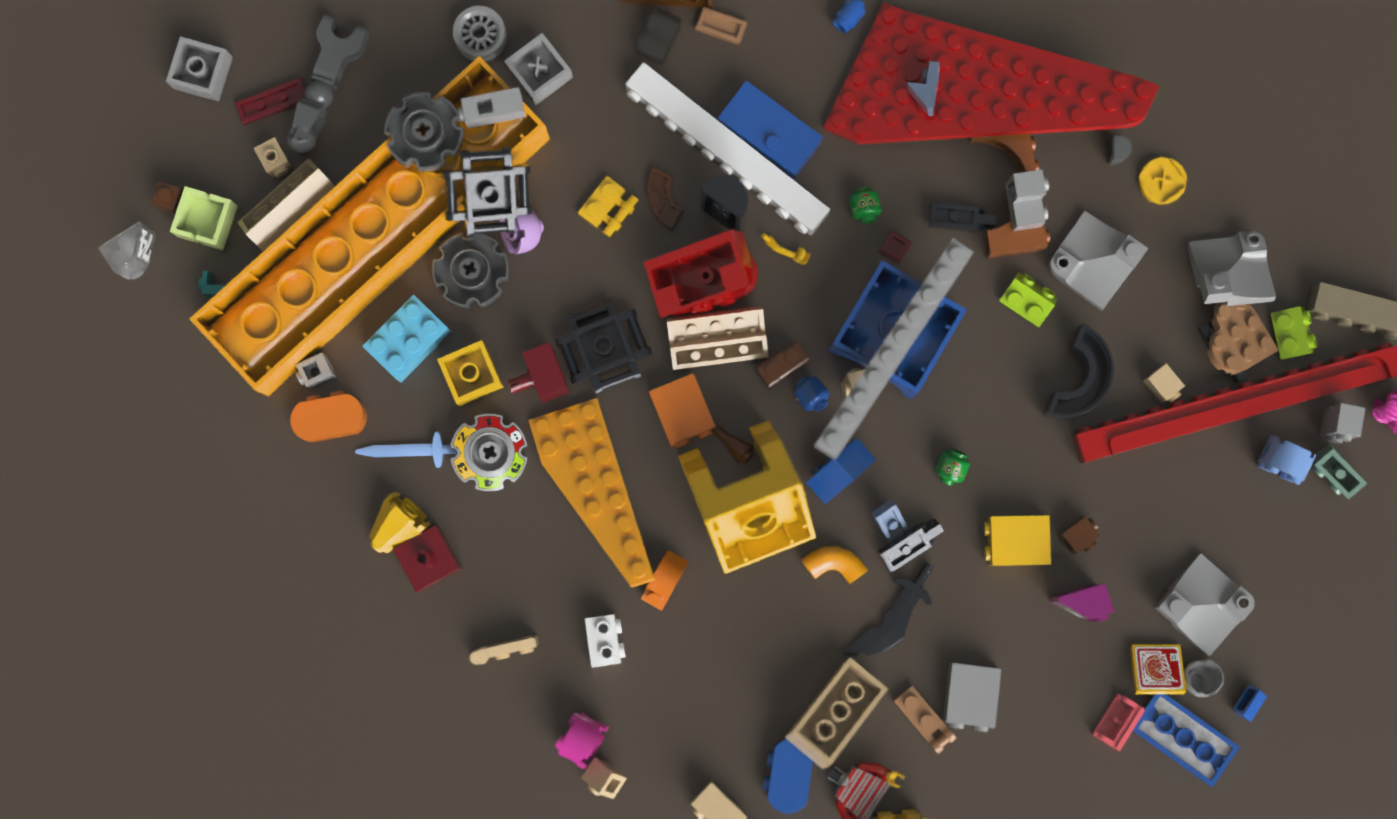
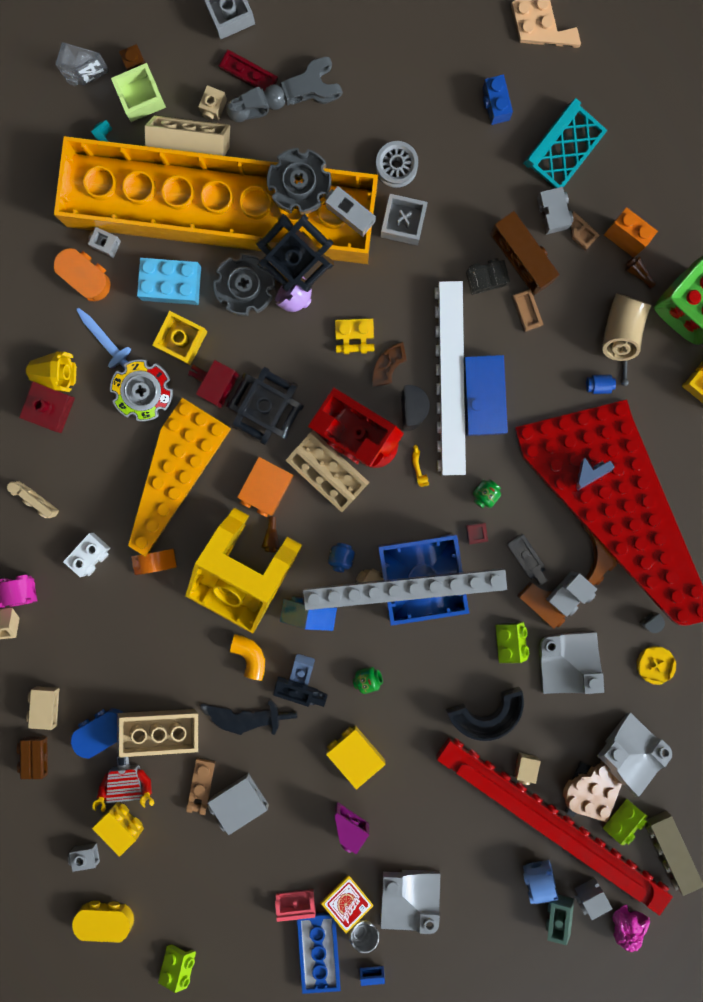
camera: 55 degrees right, 5 degrees up
(782, 364) = (344, 524): reddish brown brick -> none
(1080, 535) = (390, 792): reddish brown brick -> none

